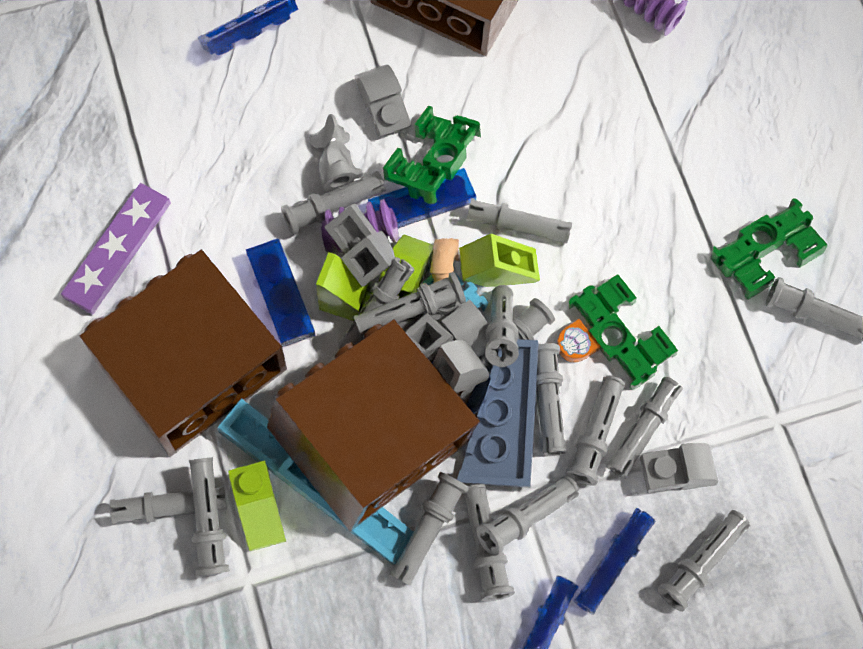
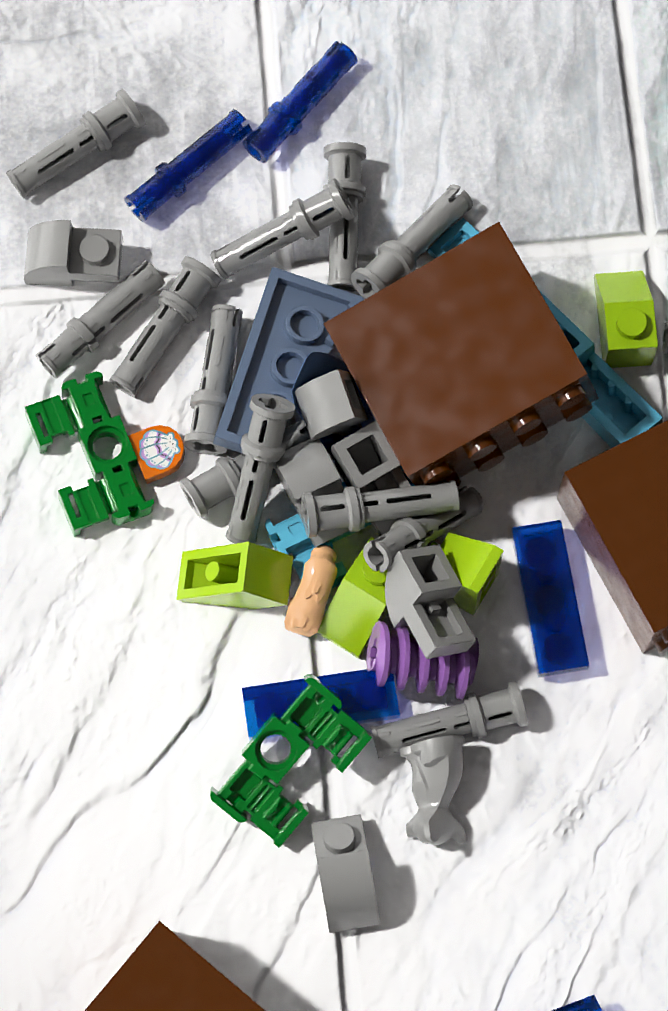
camera: 160 degrees left, 5 degrees up
(519, 220) = (207, 646): light grey pin -> none

